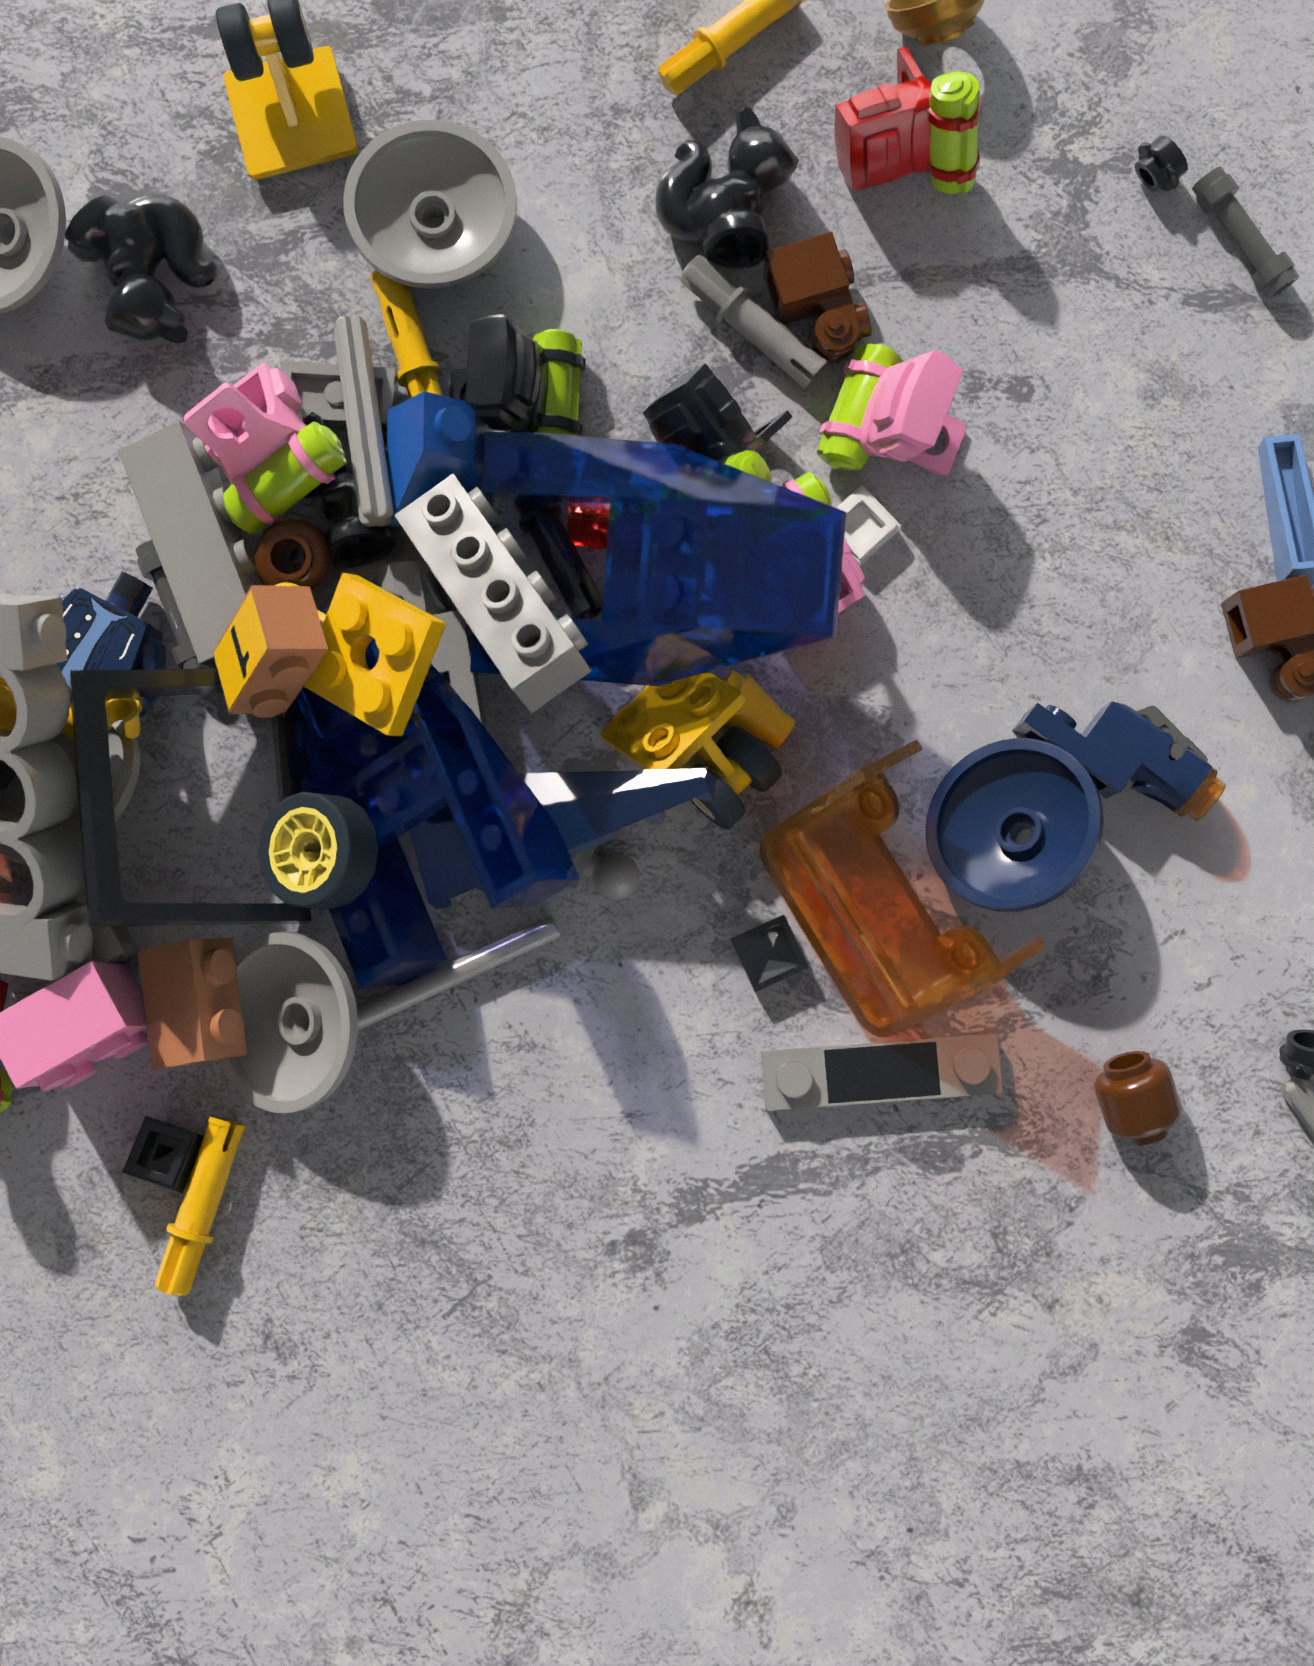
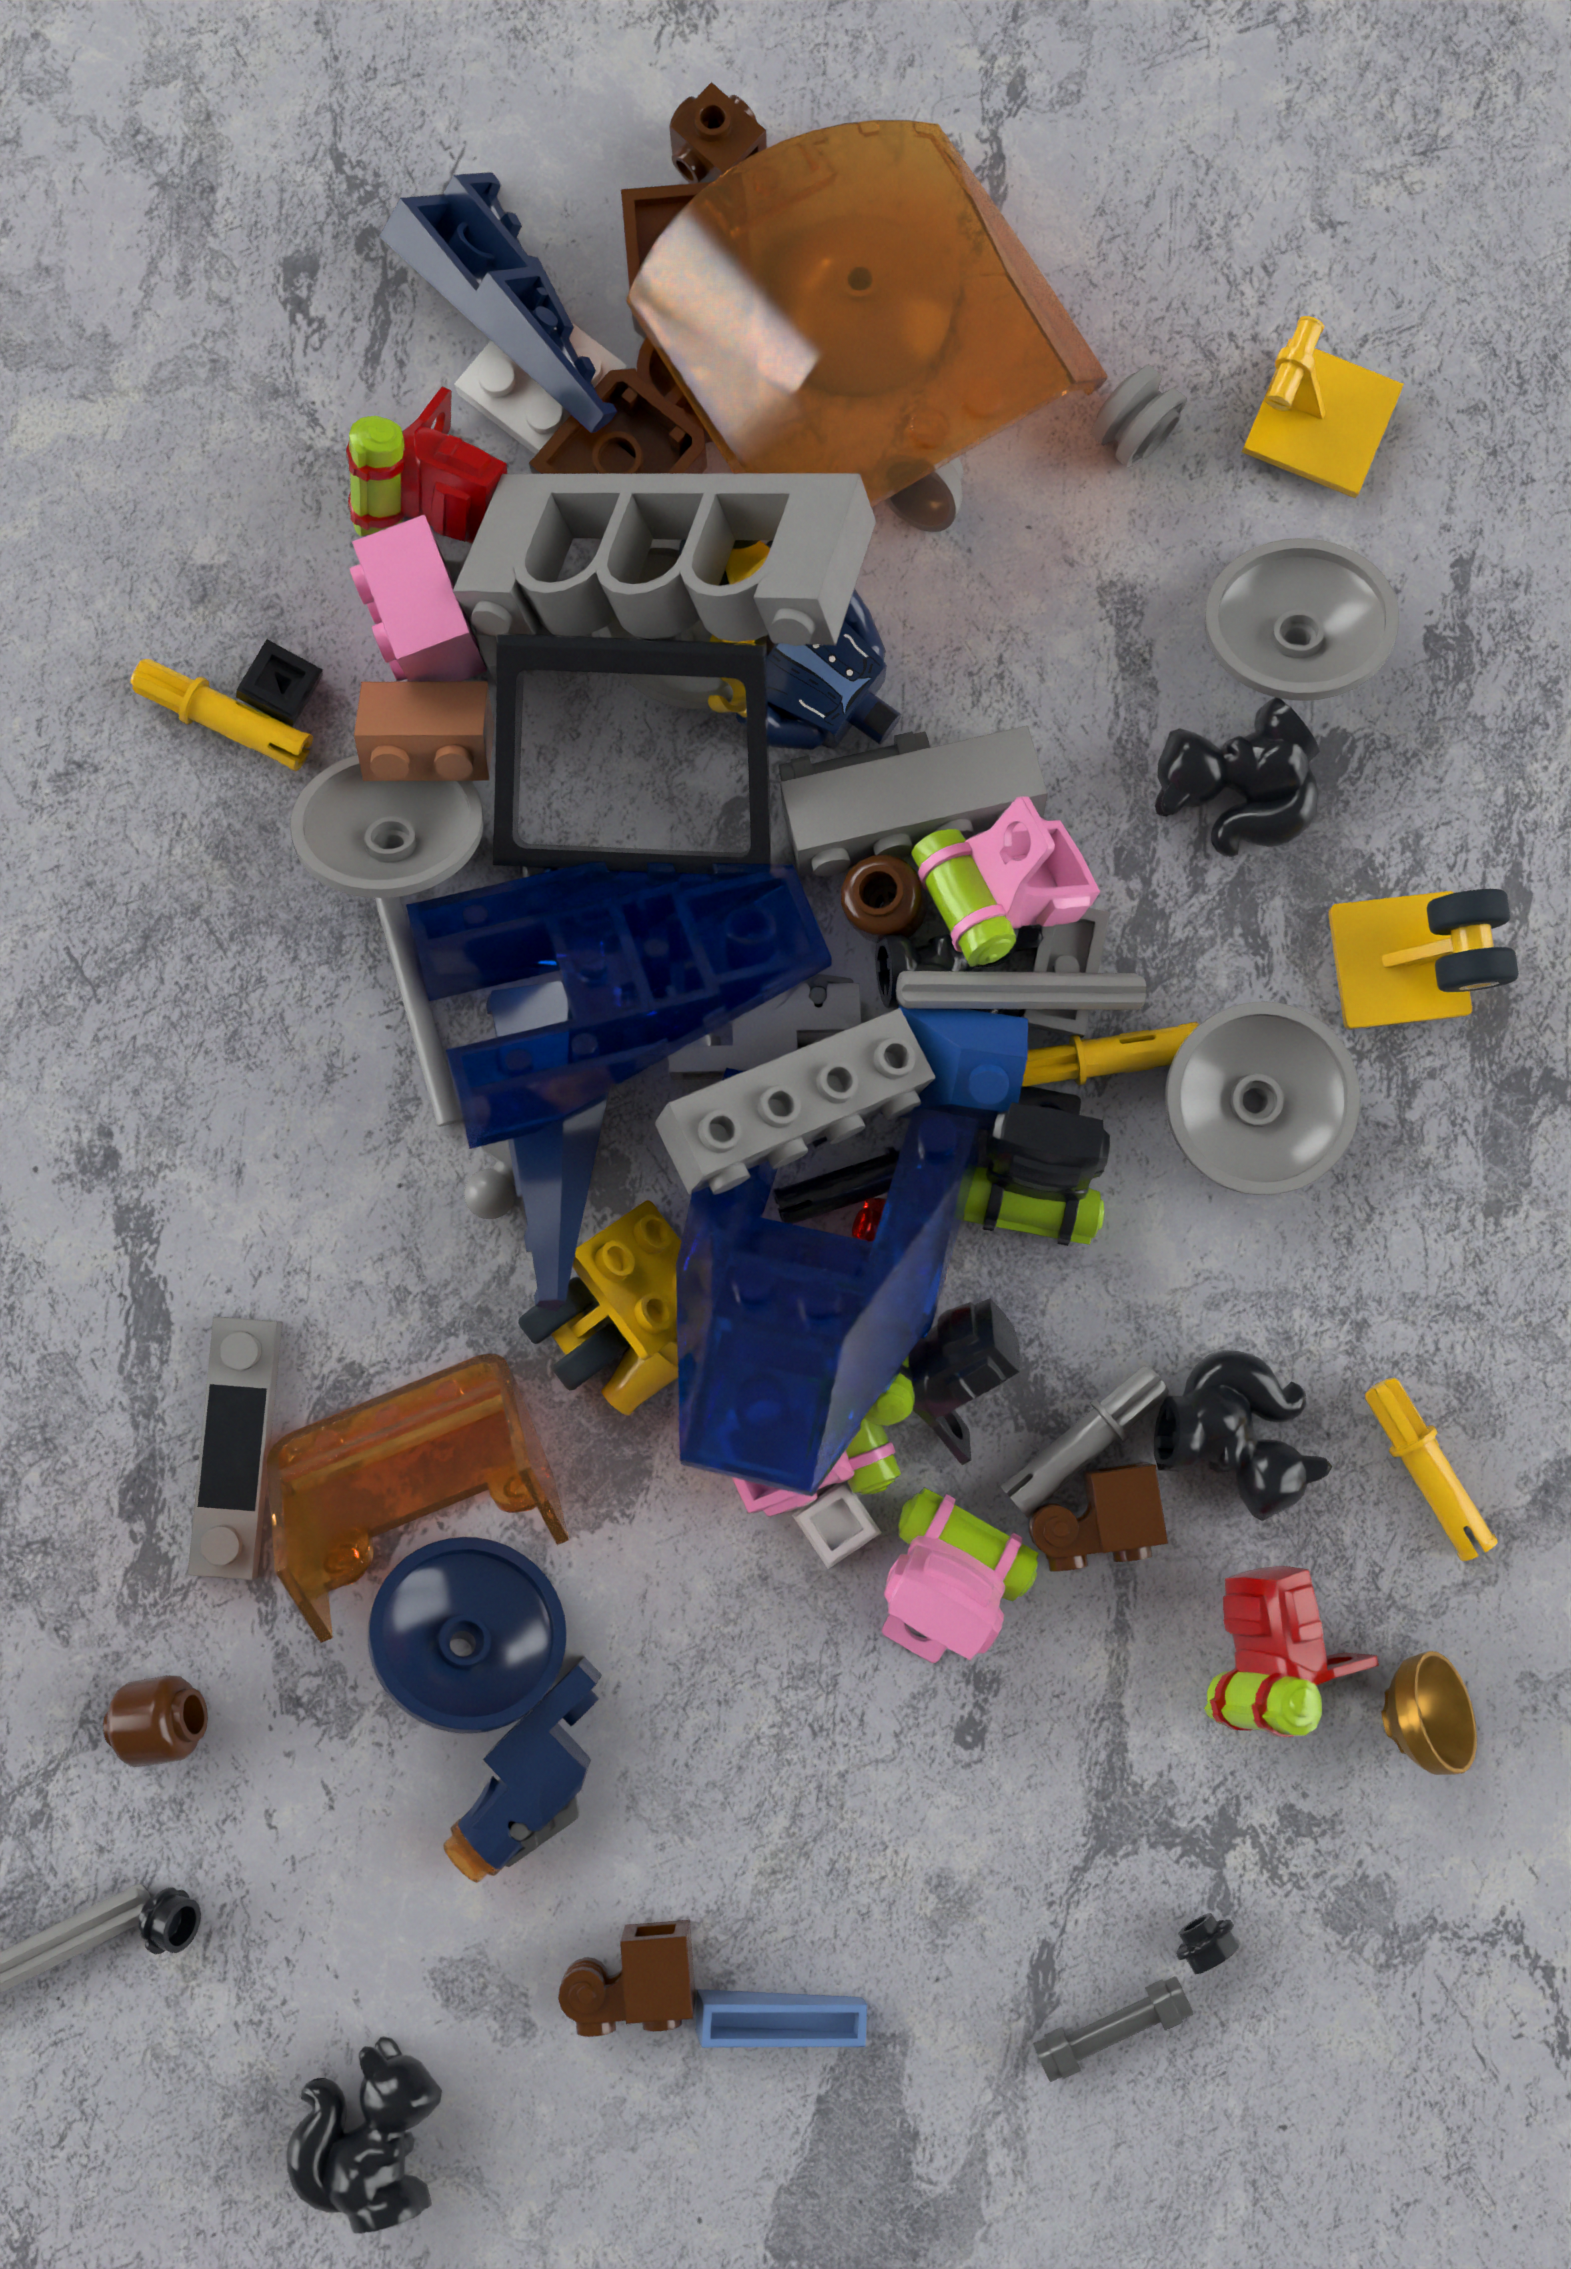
camera: 100 degrees right, 0 degrees up
(269, 650) = (768, 856): nougat brick -> none
(292, 857) = (552, 879): black wheel -> none
(405, 645) = (743, 926): yellow plate -> none
(769, 953) = (381, 1346): black tile -> none

